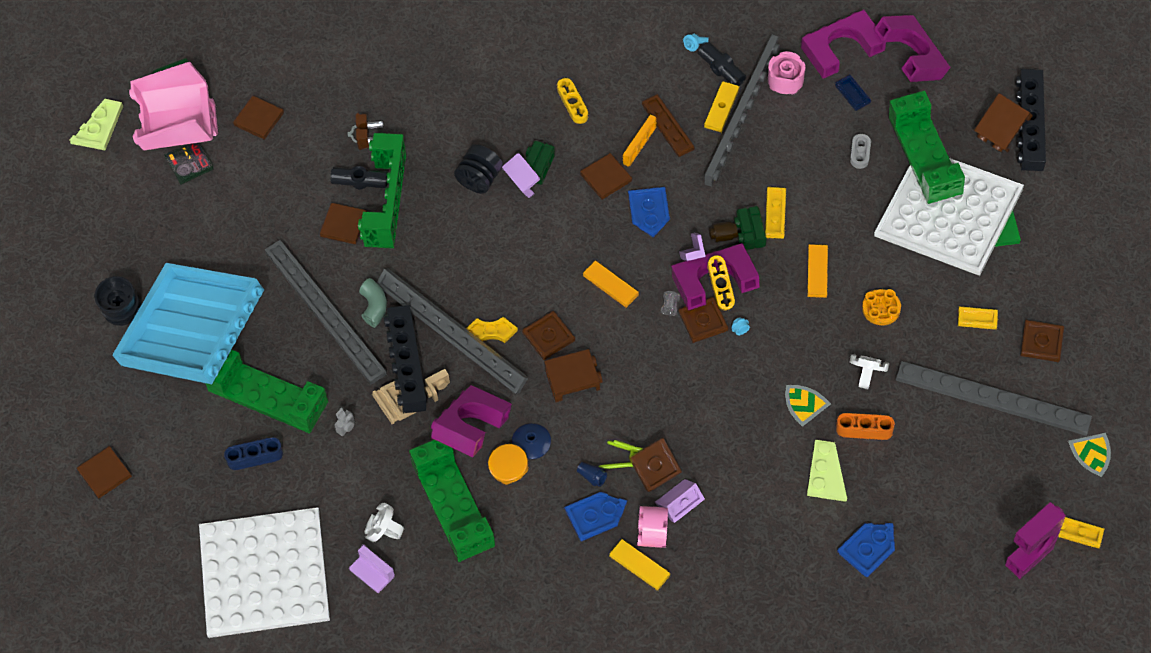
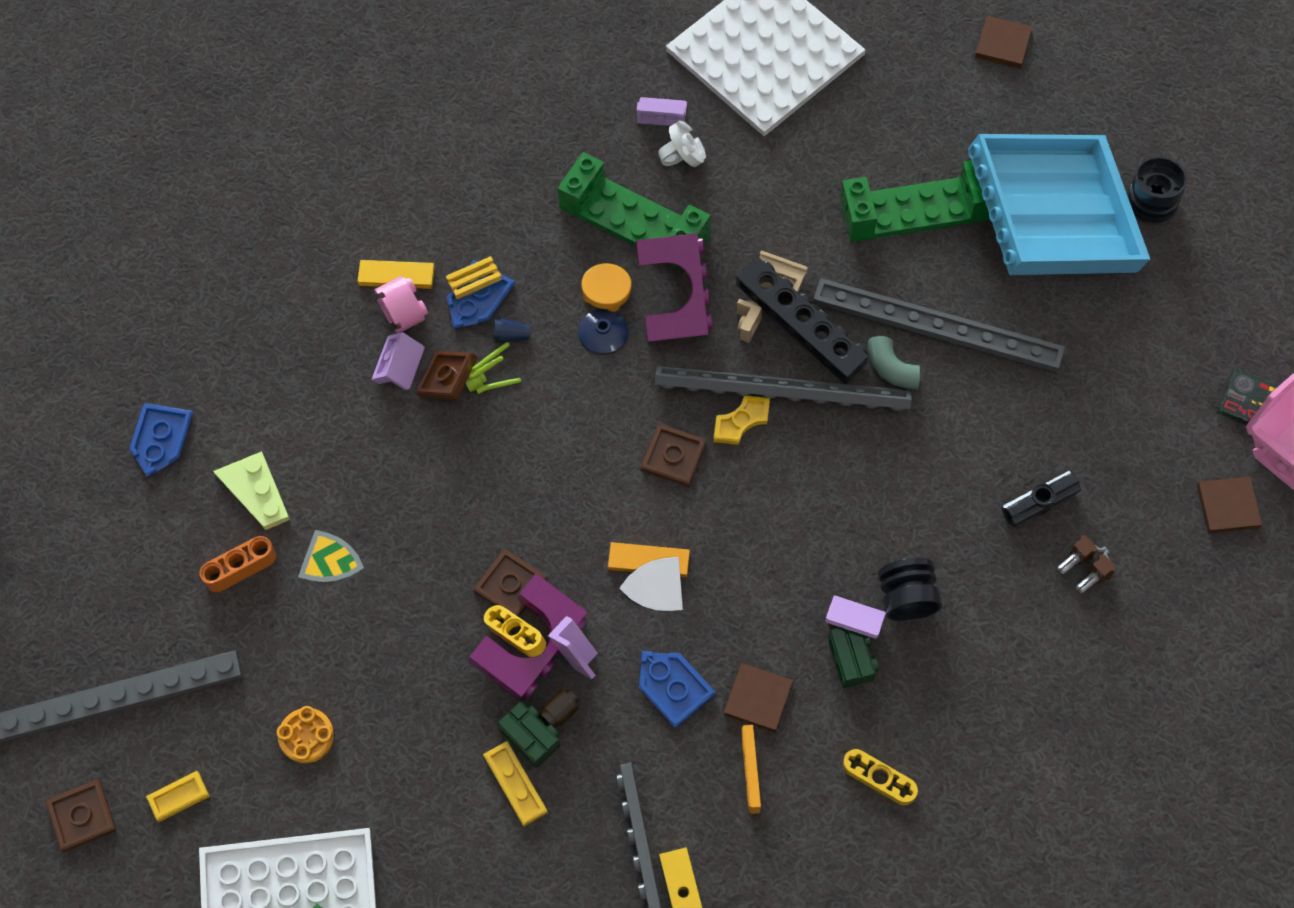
camera: 145 degrees right, 5 degrees up
(244, 452) = (877, 130): dark blue beam -> none
(342, 223) = (1010, 439): reddish brown tile -> none
(345, 422) = (807, 219): light grey plate -> none
(380, 228) = (953, 448): green plate -> none
(572, 373) = (608, 418): reddish brown panel -> none
(607, 519) = (471, 274): none -> yellow tile
(617, 266) = (656, 585): none -> white sticker
(668, 125) = (735, 822): reddish brown tile -> none
(670, 303) = (560, 574): clear bush -> none
(740, 326) = (460, 599): medium azure plate -> none
(817, 270) = (413, 734): light orange tile -> none
(868, 364) = (272, 636): white tile -> none

